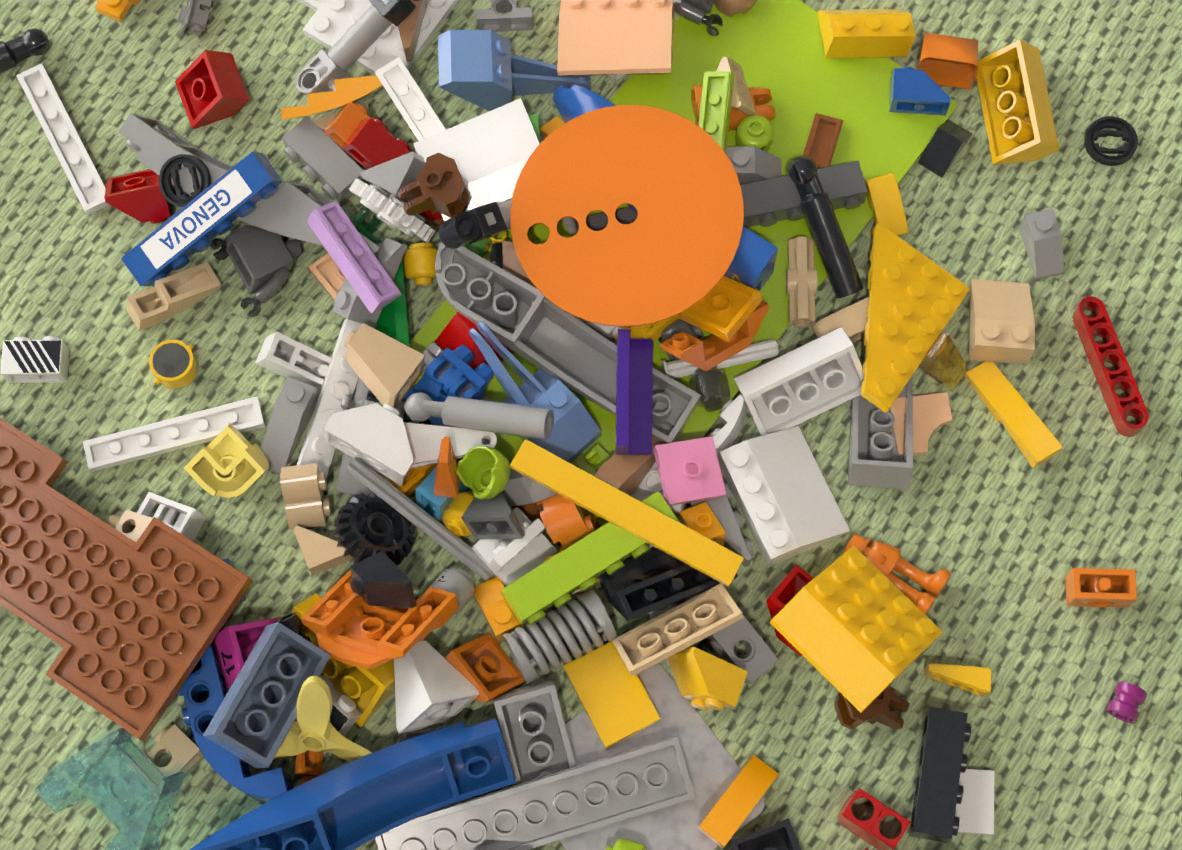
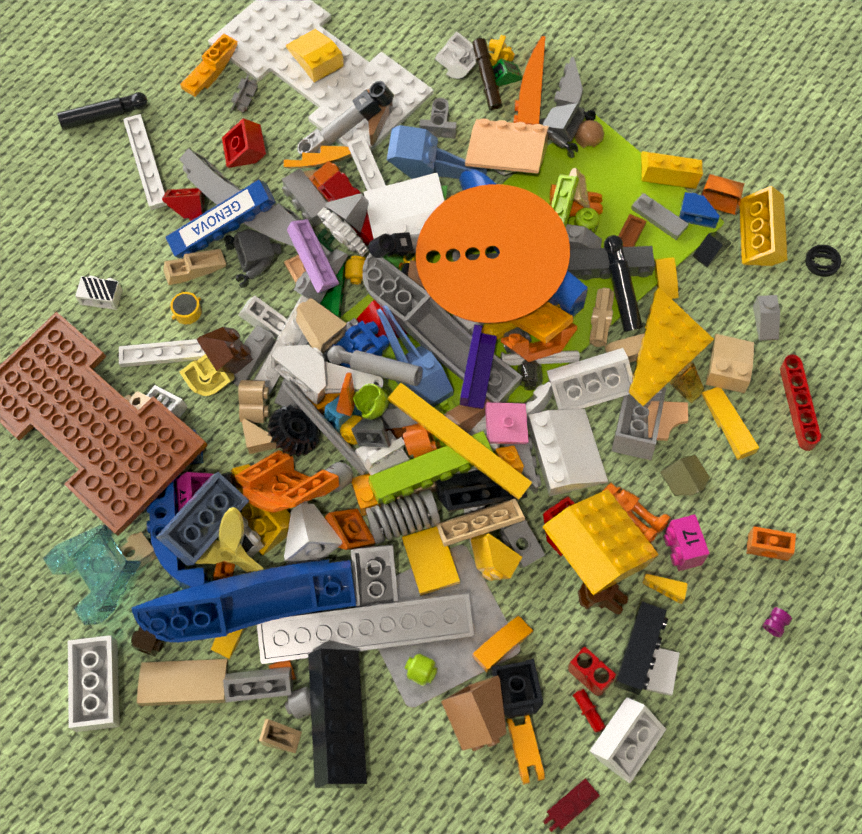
camera: 10 degrees right, 5 degrees down
(170, 170) = (206, 187): black piece -> none
(248, 424) = (225, 350): none -> reddish brown slope
(381, 583) = (291, 461): black slope -> none
(440, 186) = (372, 219): reddish brown hinge -> none
(861, 109) = (659, 216): none -> light grey hinge
(962, 505) = (686, 476): none -> olive slope
(979, 608) = (686, 543): none -> dark pink brick

